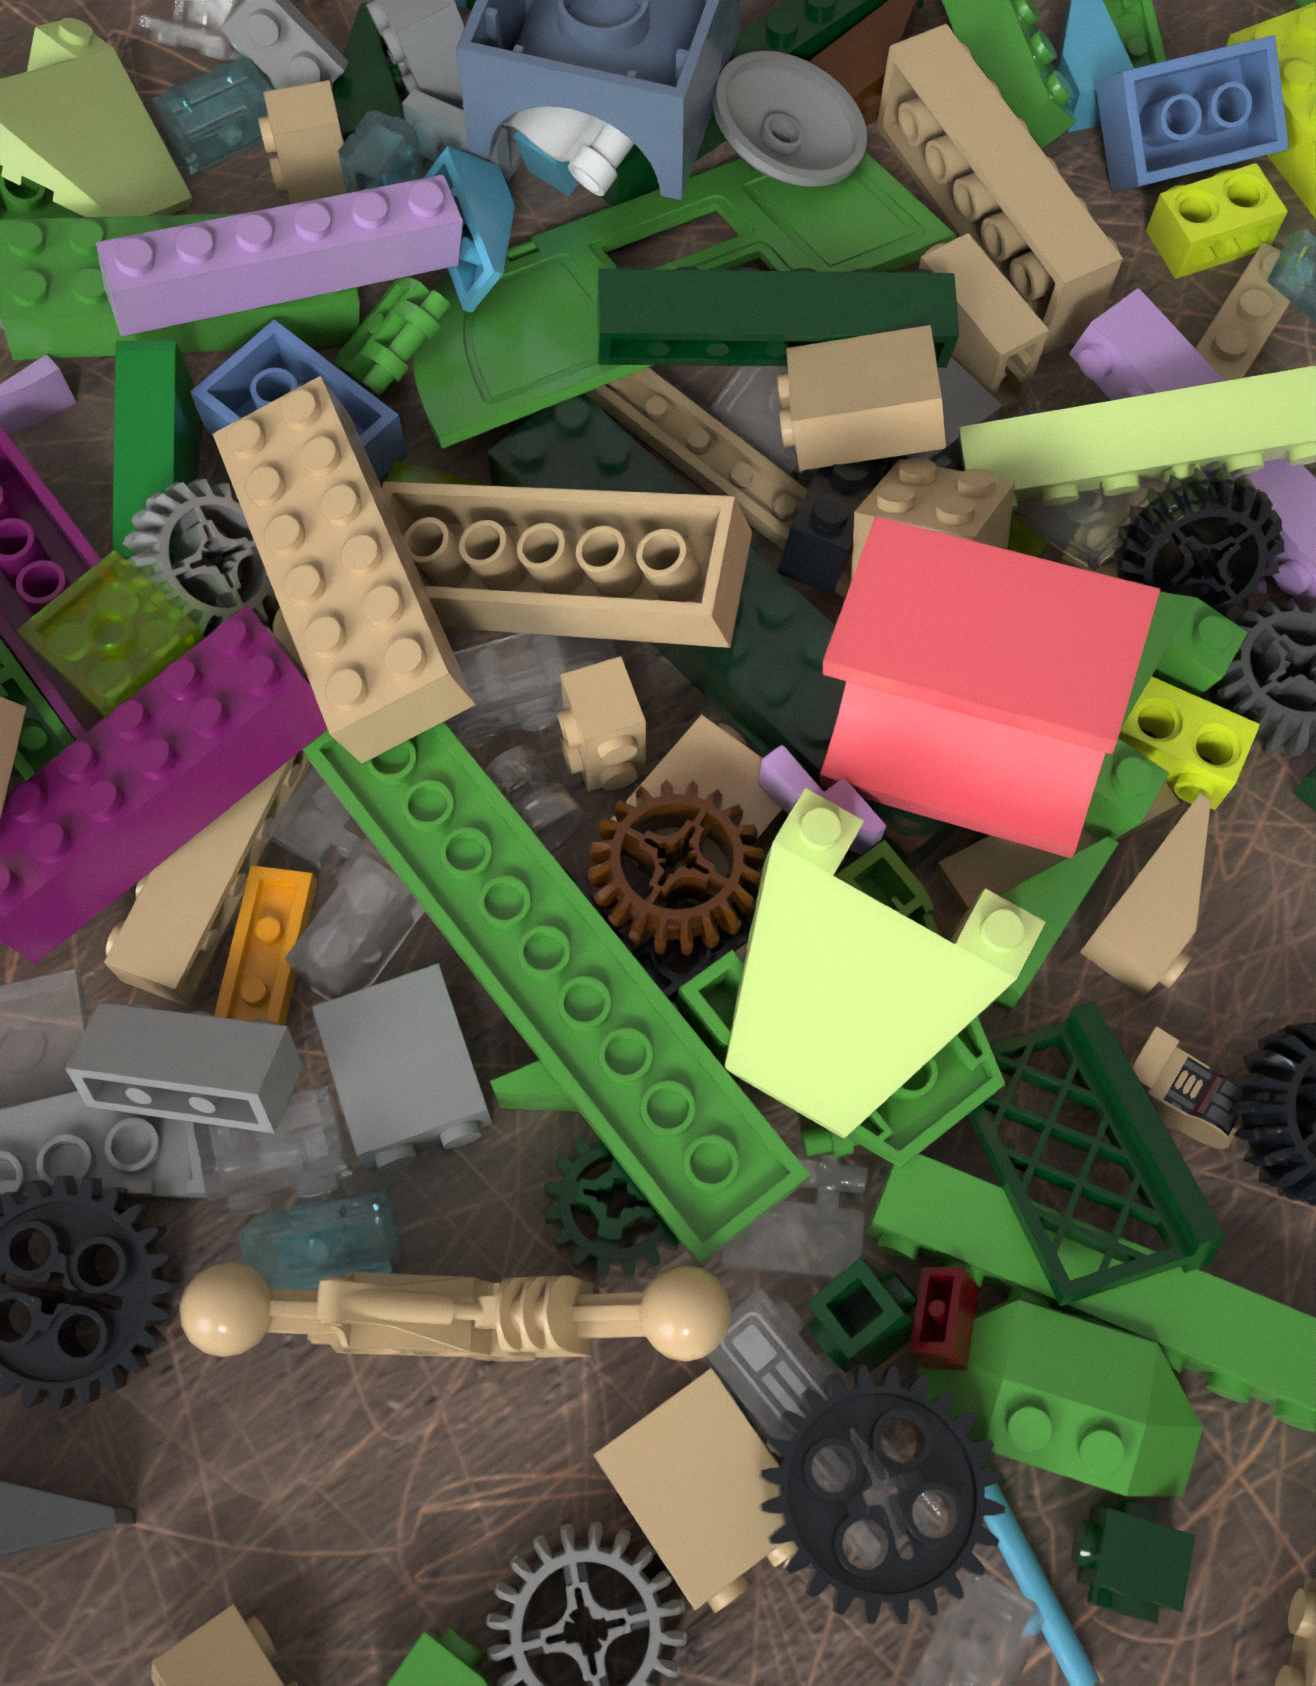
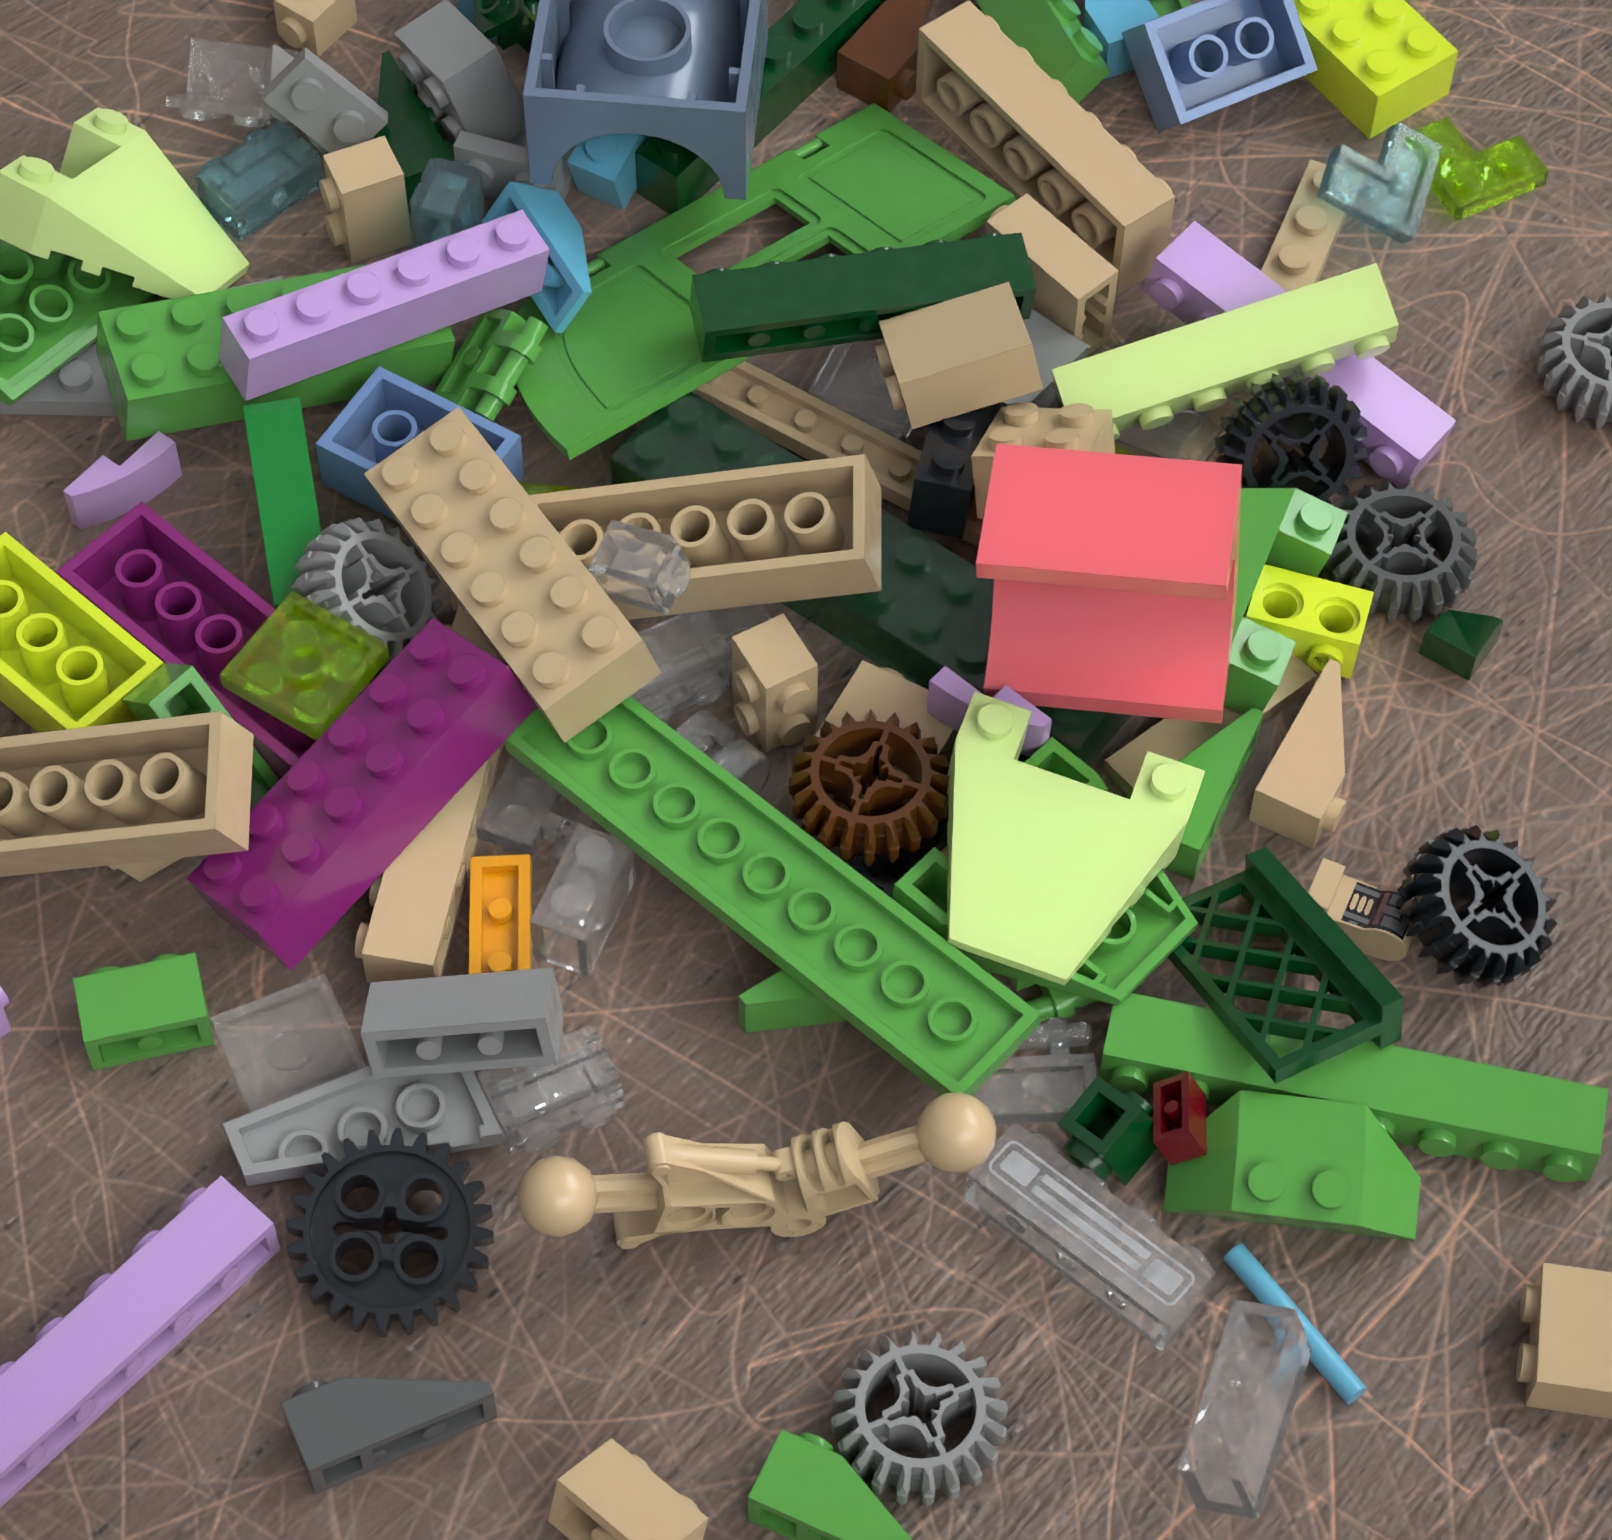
camera: 10 degrees left, 10 degrees down
(324, 1240) = (618, 1142): clear light blue brick -> none
(402, 1069) = (653, 1004): light grey brick -> none
(472, 584) = (640, 567): none -> clear brick
(576, 137) = (645, 158): white flag -> none
(585, 1197) = (842, 1093): dark green gear -> none
(698, 1490) = (998, 1293): tan brick -> none
(789, 119) = (834, 108): light grey dish -> none
(941, 1464) = (1100, 1274): black gear -> none
(1132, 1561) = (1377, 1288): dark green brick -> none
(1215, 220) = (1260, 145): neon yellow brick -> none

